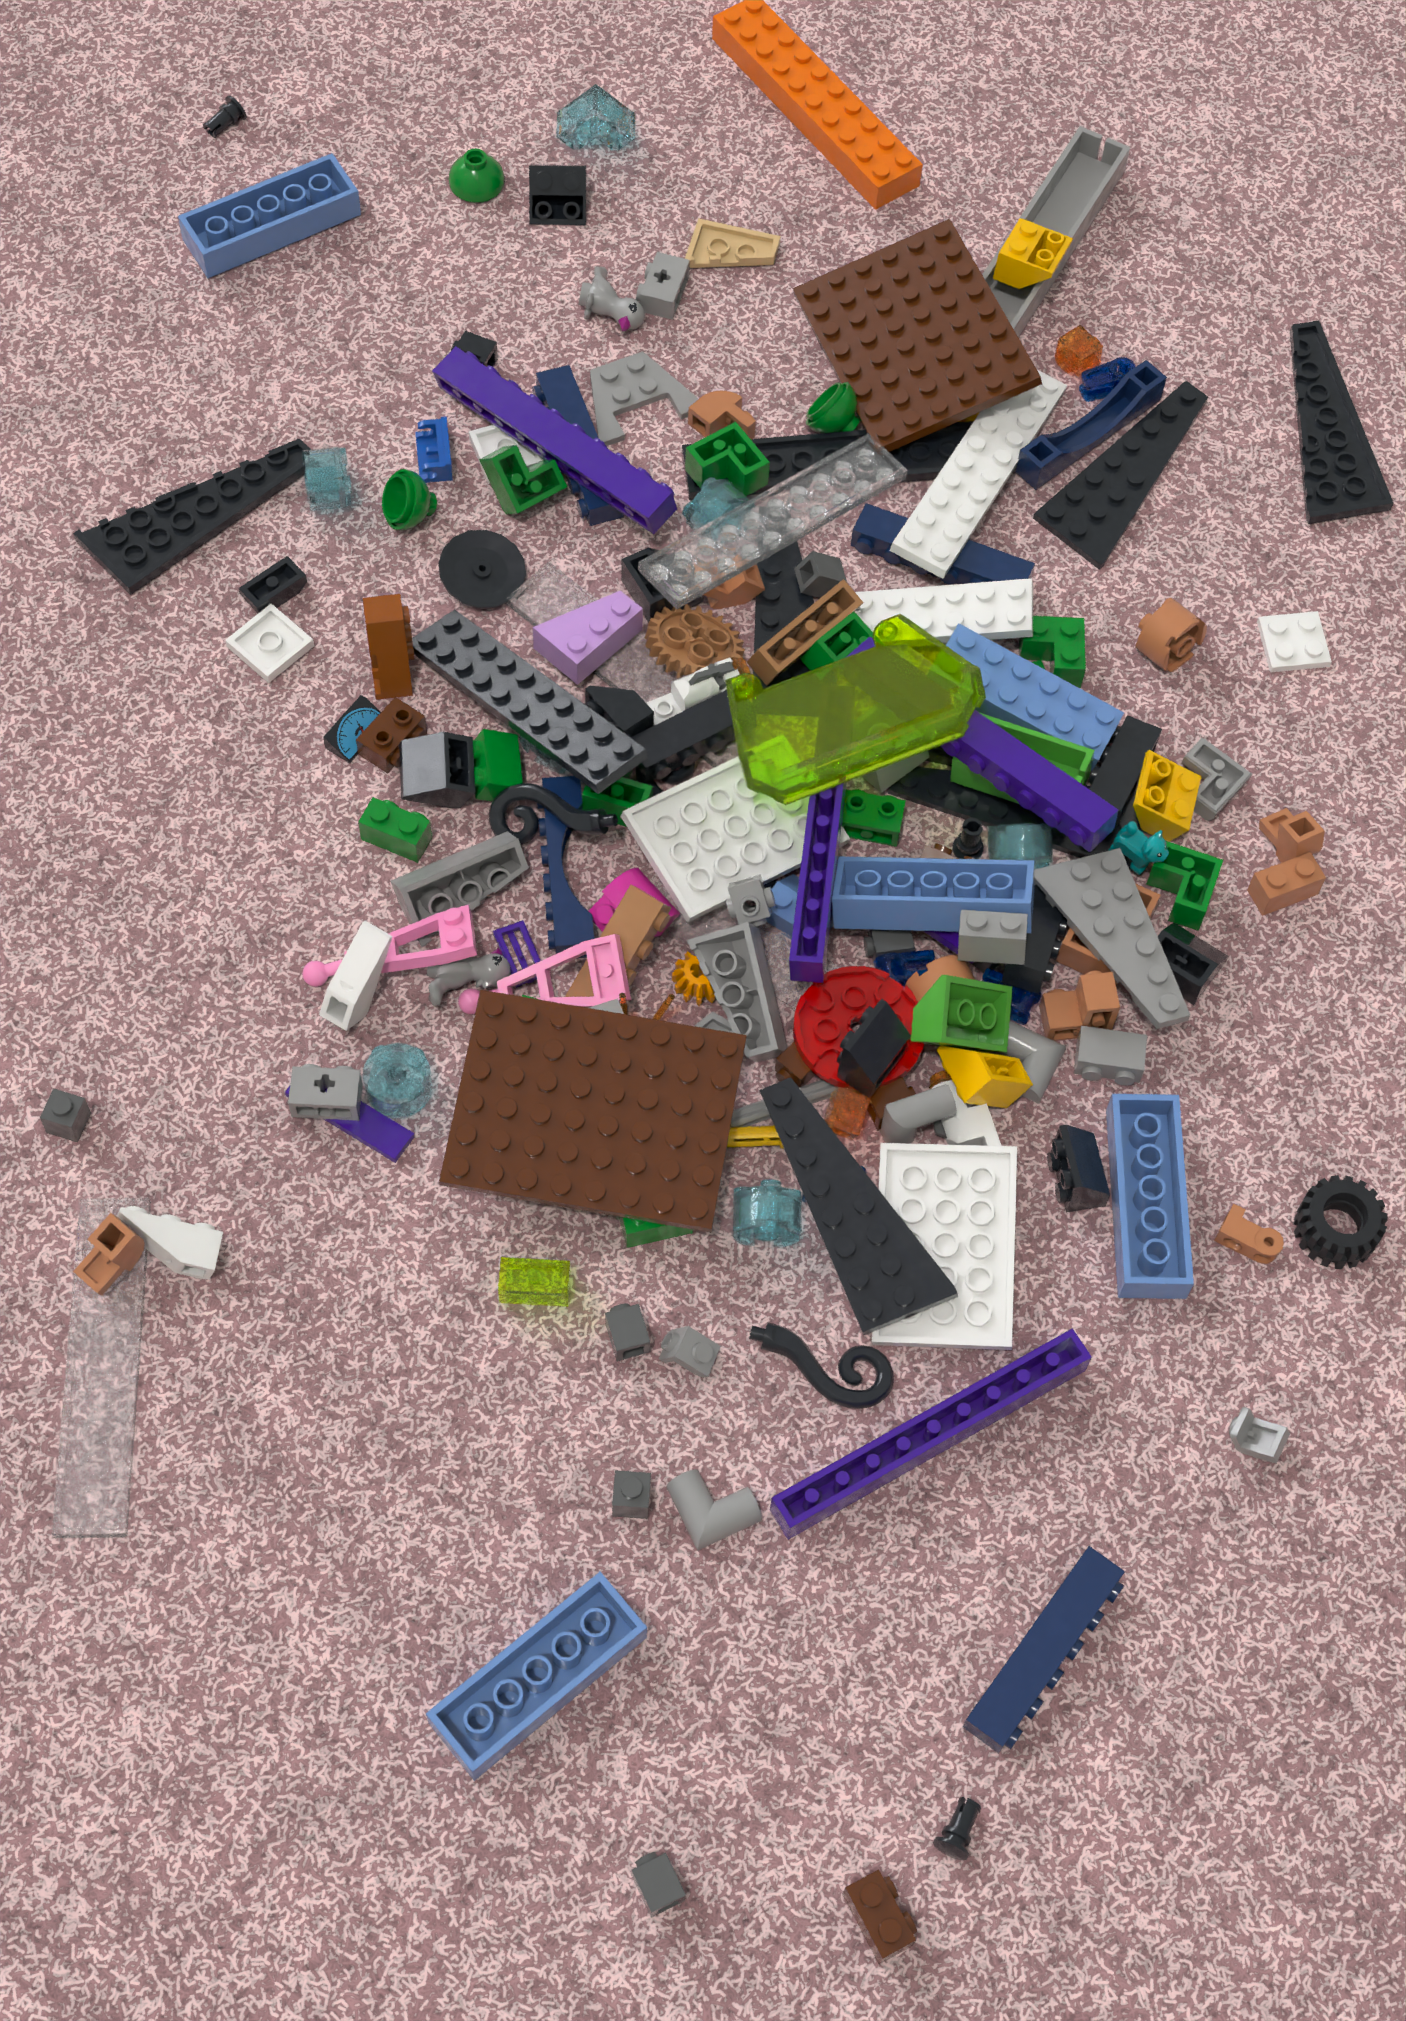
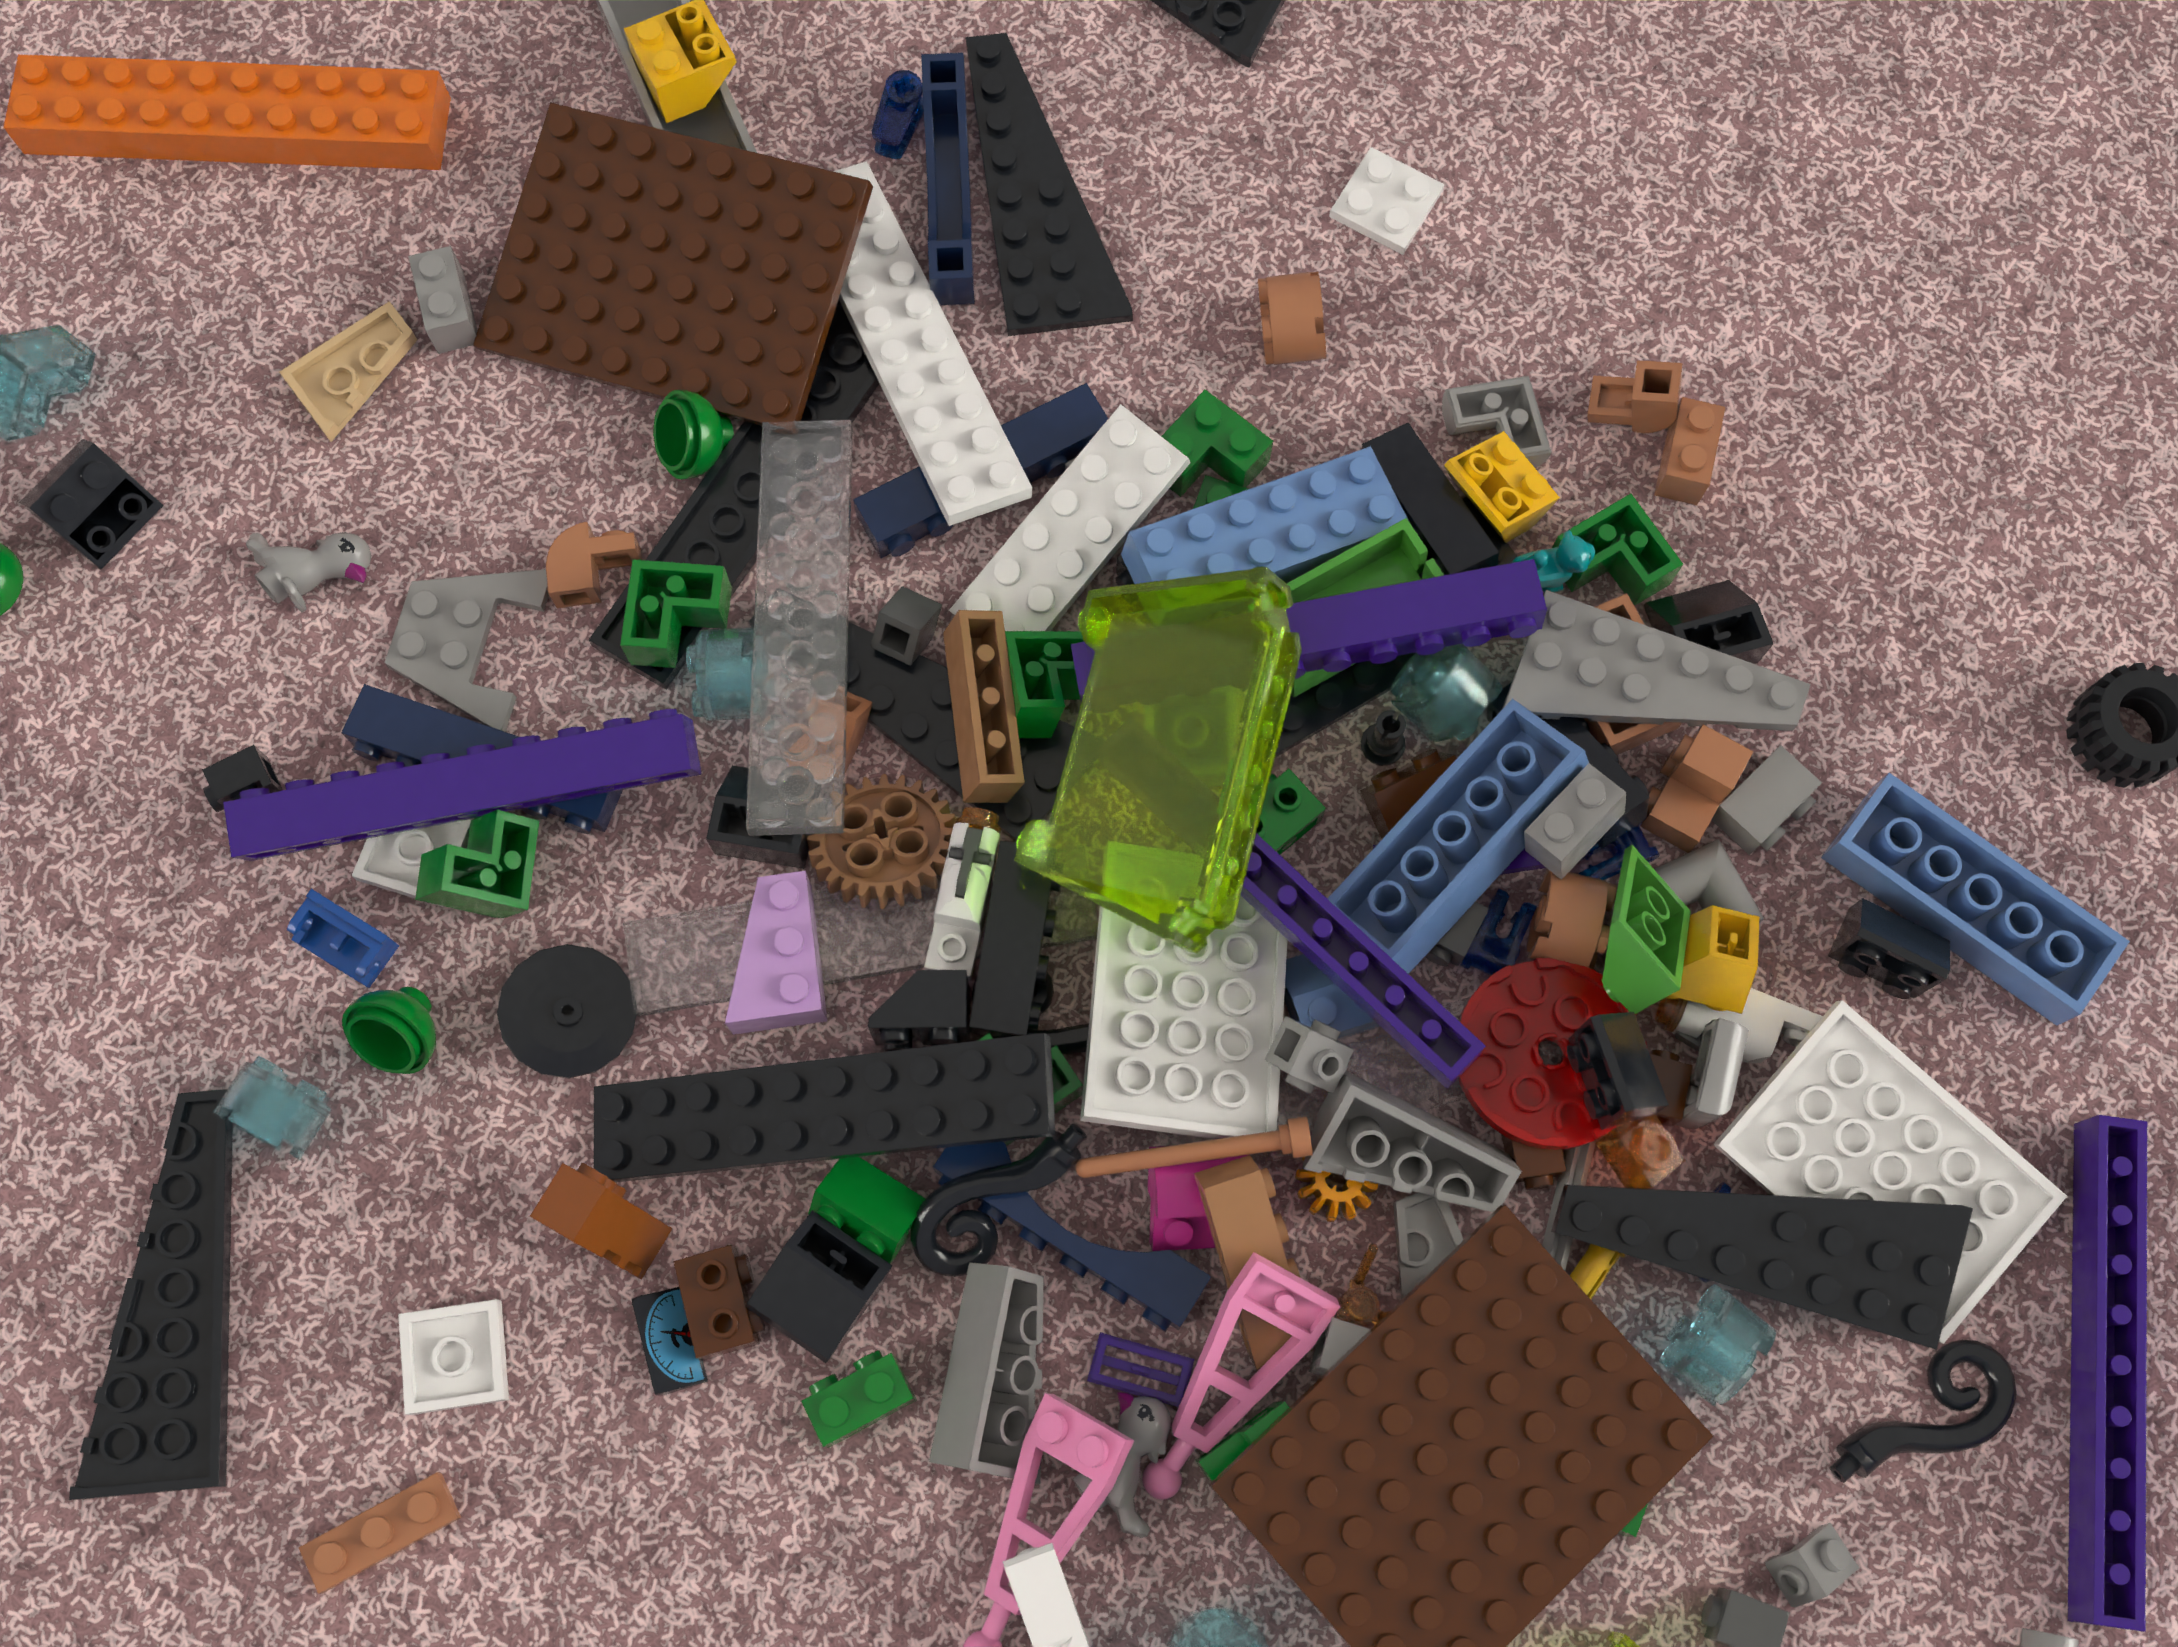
camera: 50 degrees left, 10 degrees up
(160, 673) = (379, 1532): none -> nougat plate
(274, 585) = (370, 1291): black slope -> none
(663, 285) = (332, 463): light grey brick -> none
(697, 920) = (1290, 1138): none -> nougat piece
(803, 256) = (443, 299): none -> light grey brick
(1078, 351) = (835, 114): clear orange brick -> none
(1248, 1238) = (2094, 829): nougat leg -> none

